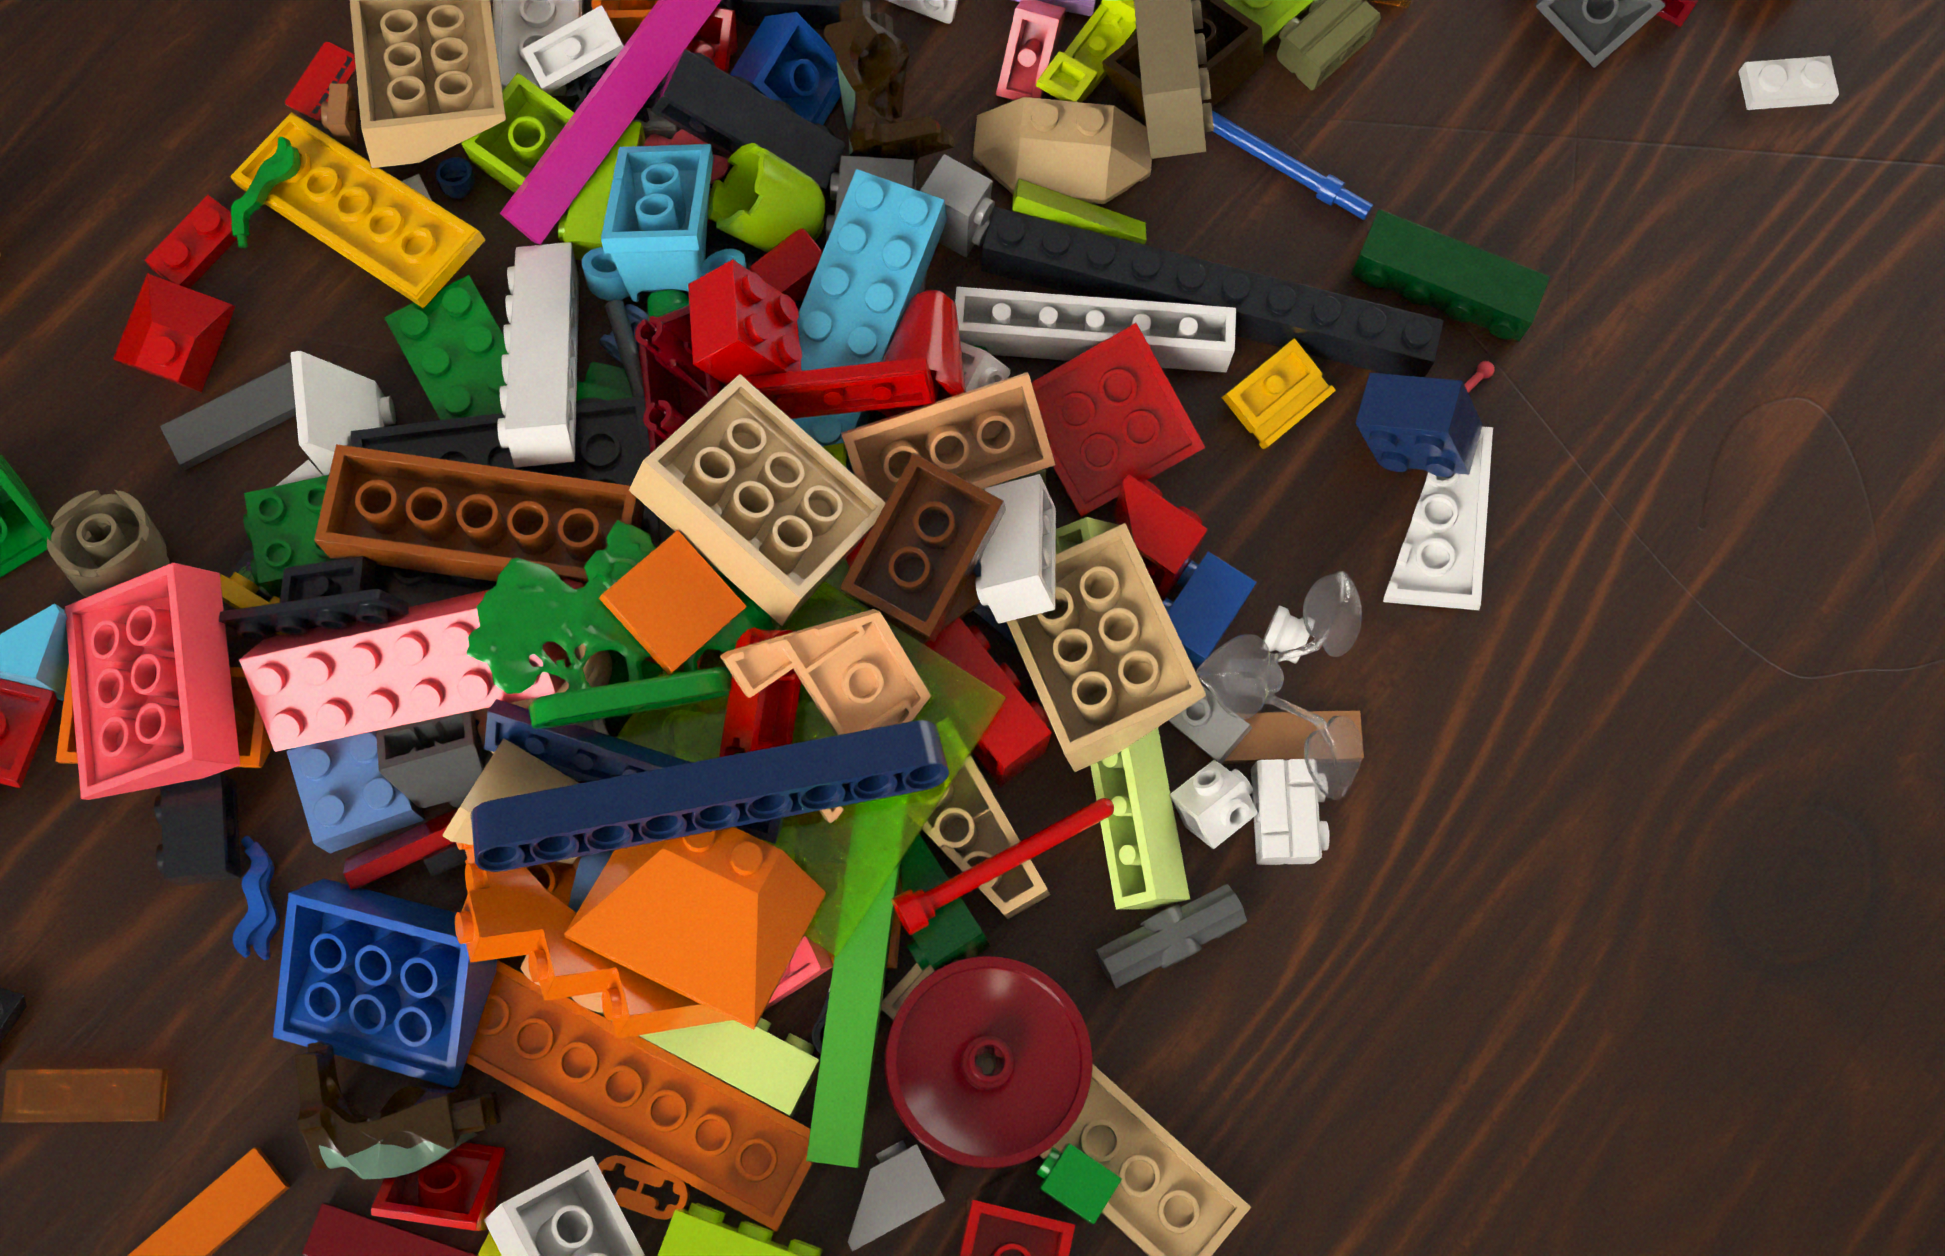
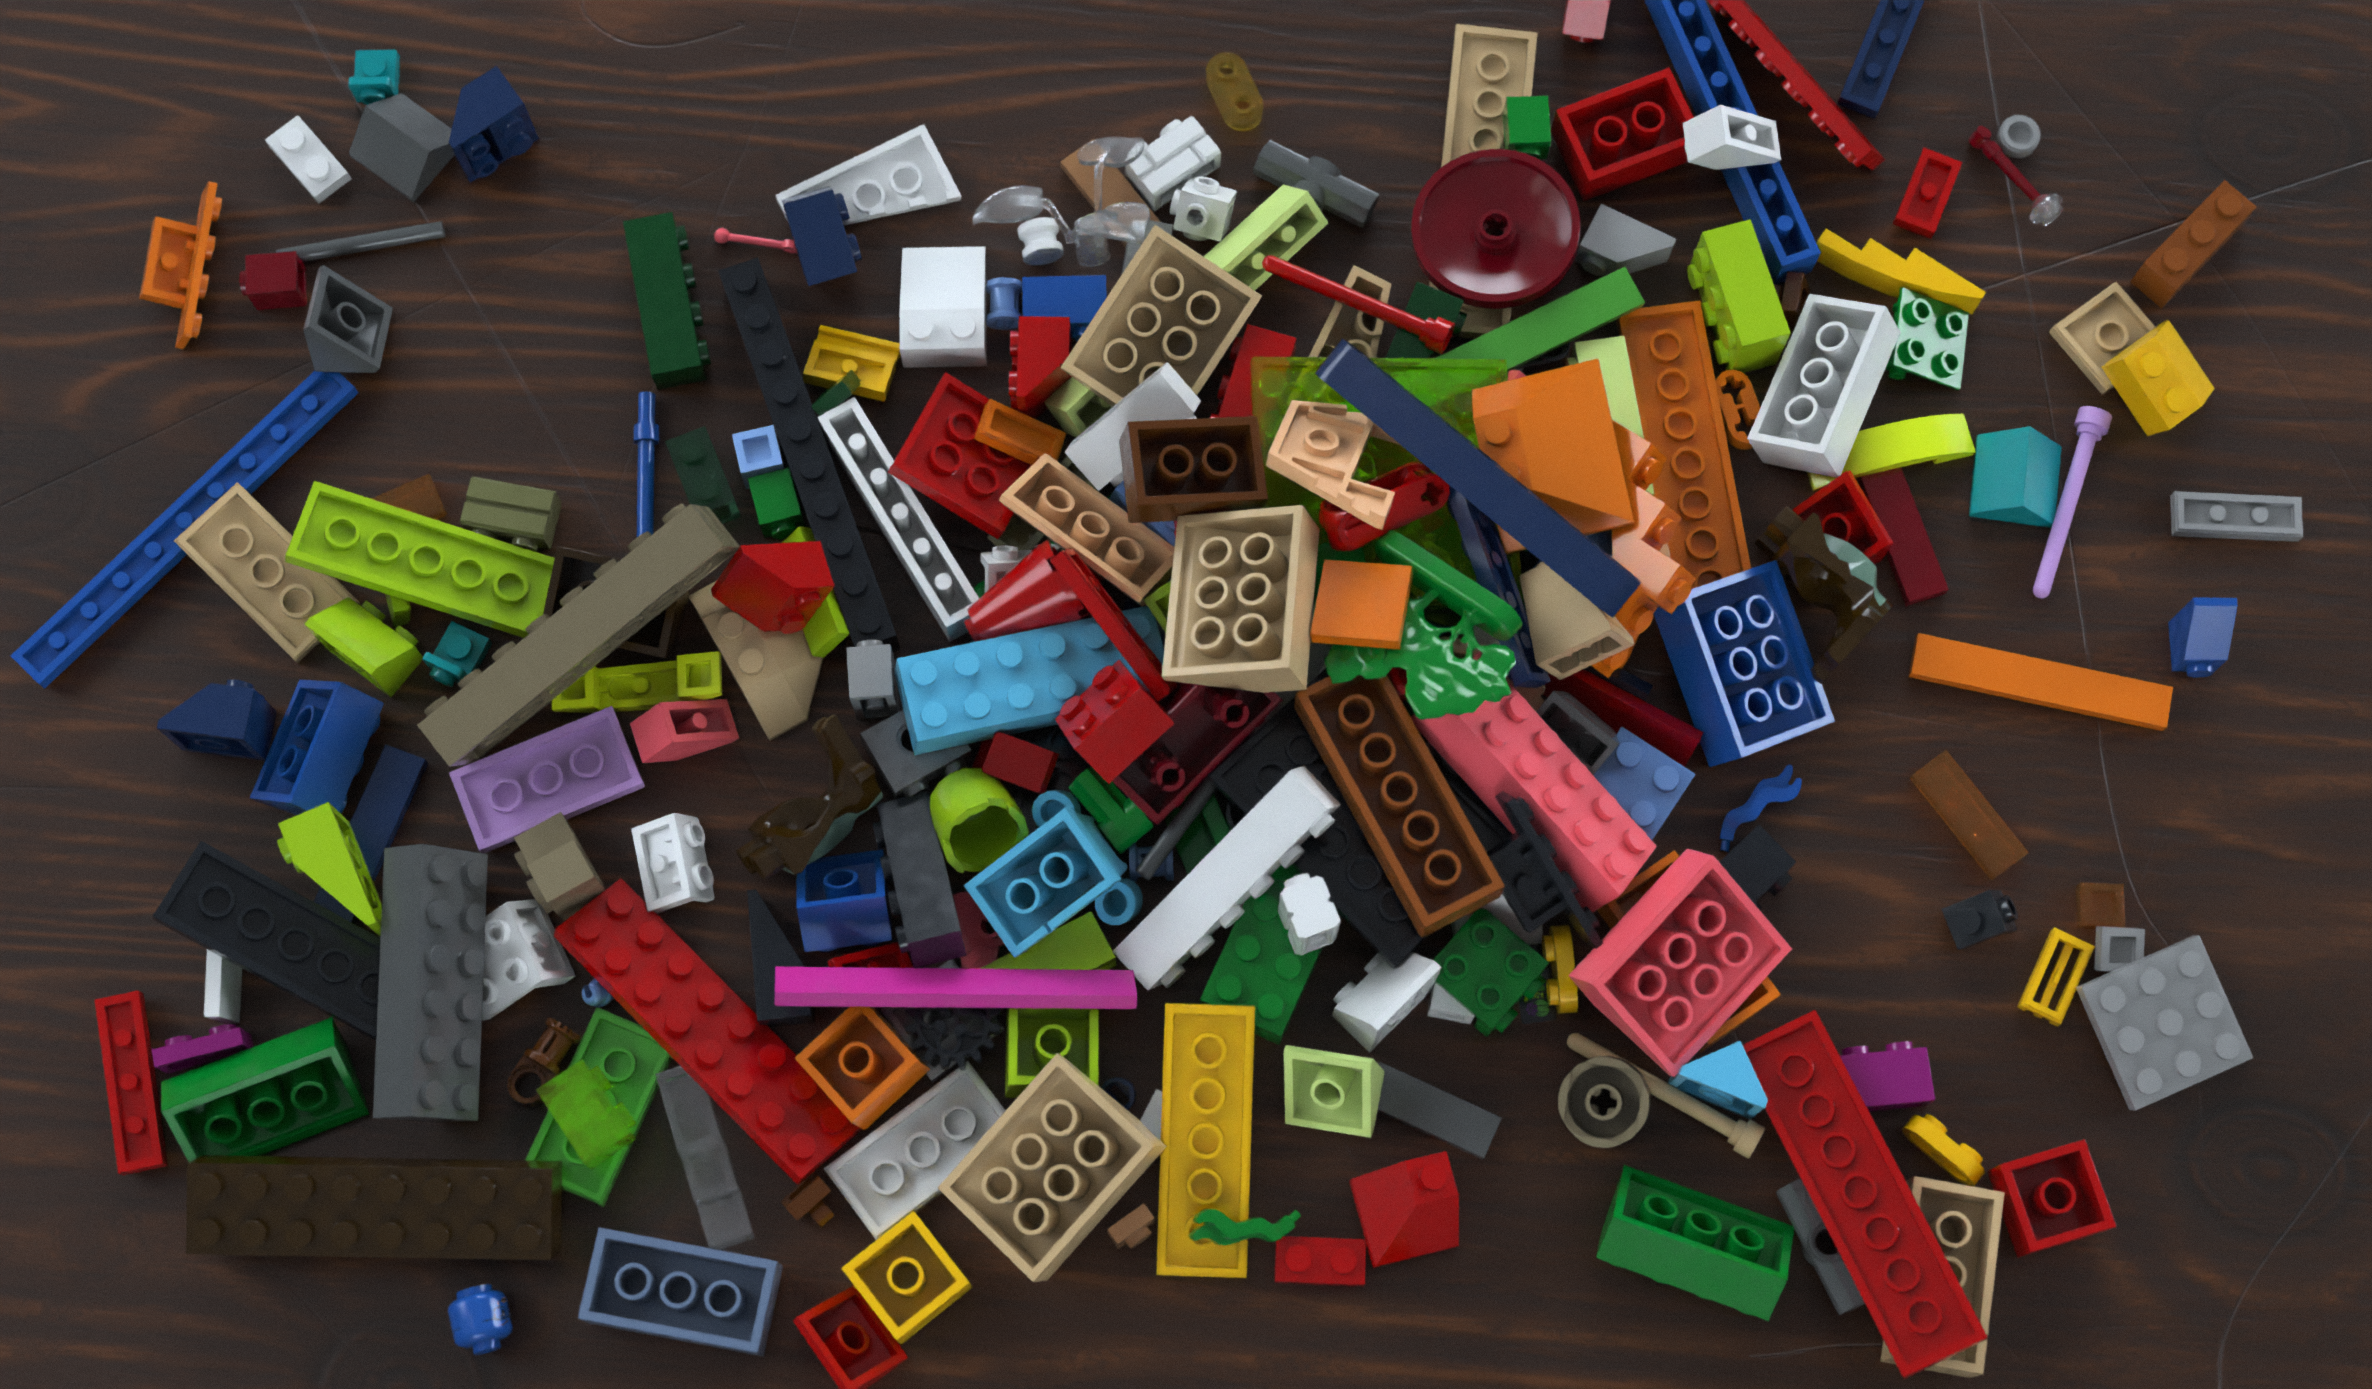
camera: 120 degrees left, 0 degrees up
(328, 66) = (1107, 1281): red sticker -> none
(329, 330) = (1331, 1091): none -> yellowish green slope
(446, 379) = (1308, 913): none -> white brick
(573, 49) = (957, 1053): white plate -> none
(1092, 167) = (776, 584): none -> red slope
(1098, 477) = (1018, 433): none -> orange tile
(1186, 235) = (776, 503): none -> green brick
(1242, 246) = (757, 452): none -> light blue panel
(1247, 559) = (1003, 303): none -> medium blue bush
(1250, 345) = (837, 393): none -> dark green tile
(1251, 199) = (702, 474): none -> clear green brick
(1282, 507) = (943, 307): none -> white slope
(1328, 933) = (1232, 89): none -> clear yellow plate
(1674, 77) = (368, 241): none -> dark grey bar
(1725, 225) = (489, 125): none -> dark blue slope
(1755, 166) = (402, 144): none -> dark grey slope
(1839, 180) = (375, 75): none -> teal bracket

